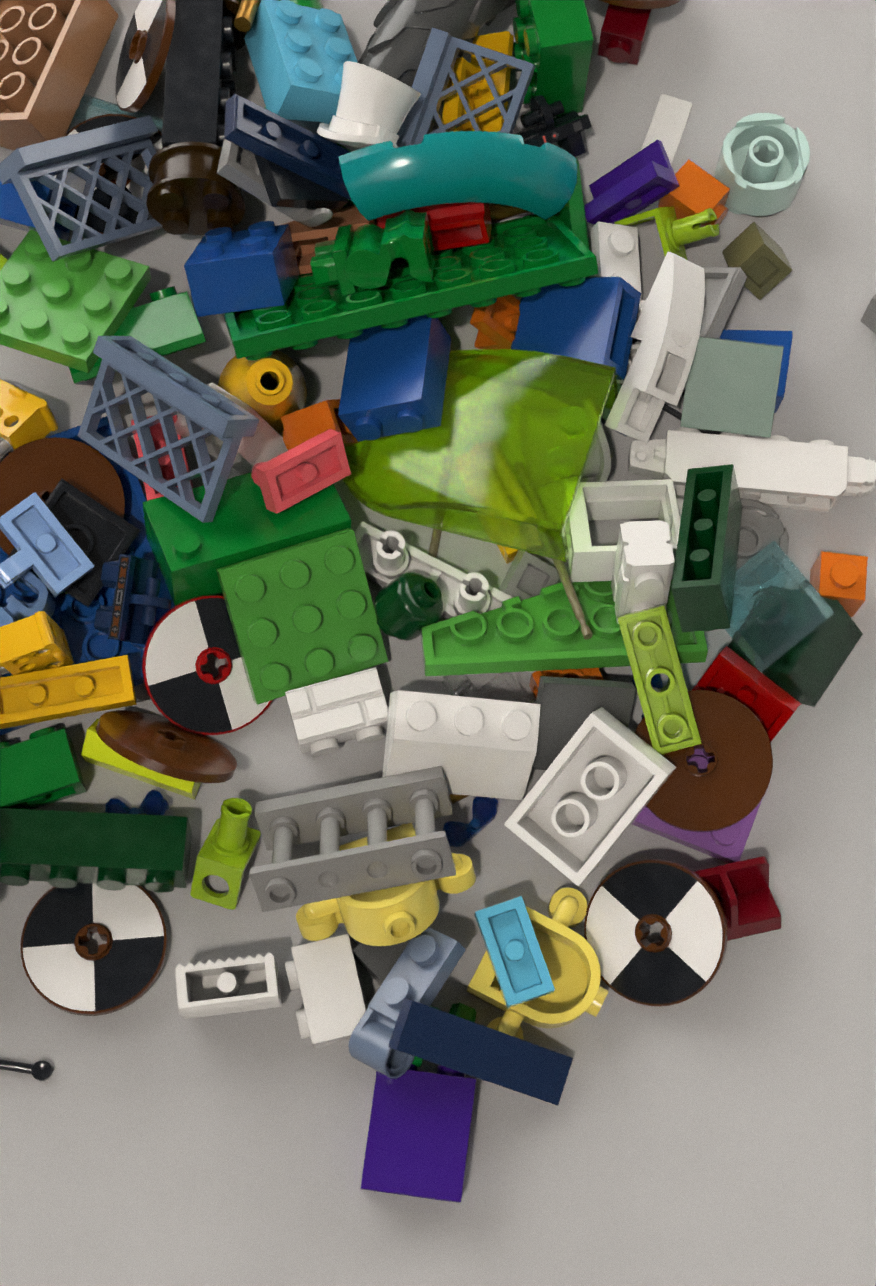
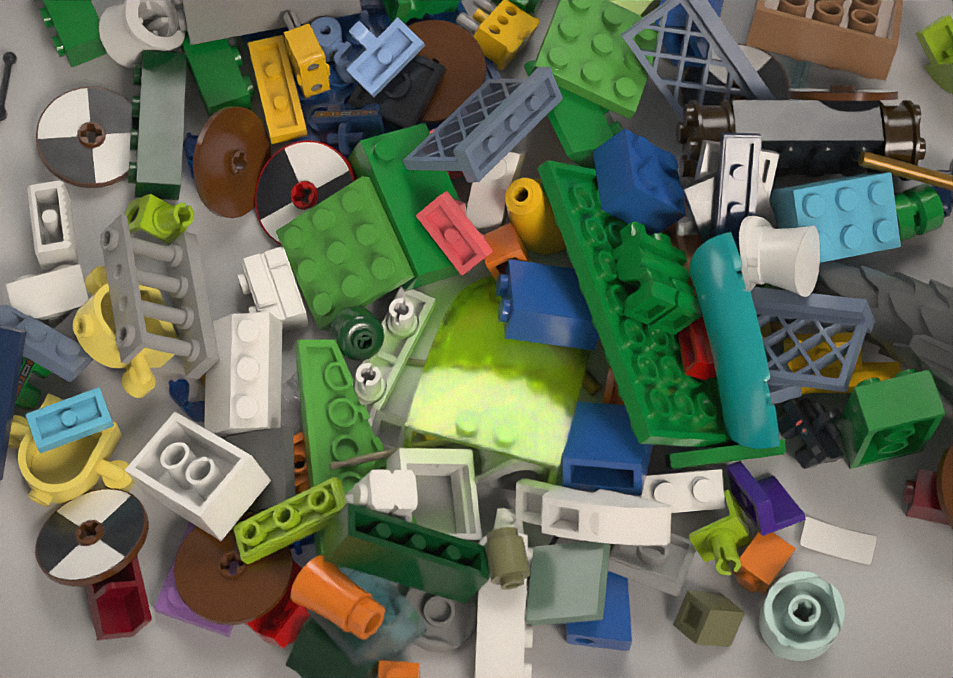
camera: 90 degrees right, 5 degrees down
(705, 445) = (506, 557): none -> olive brick
(764, 623) = (337, 598): none -> orange plant

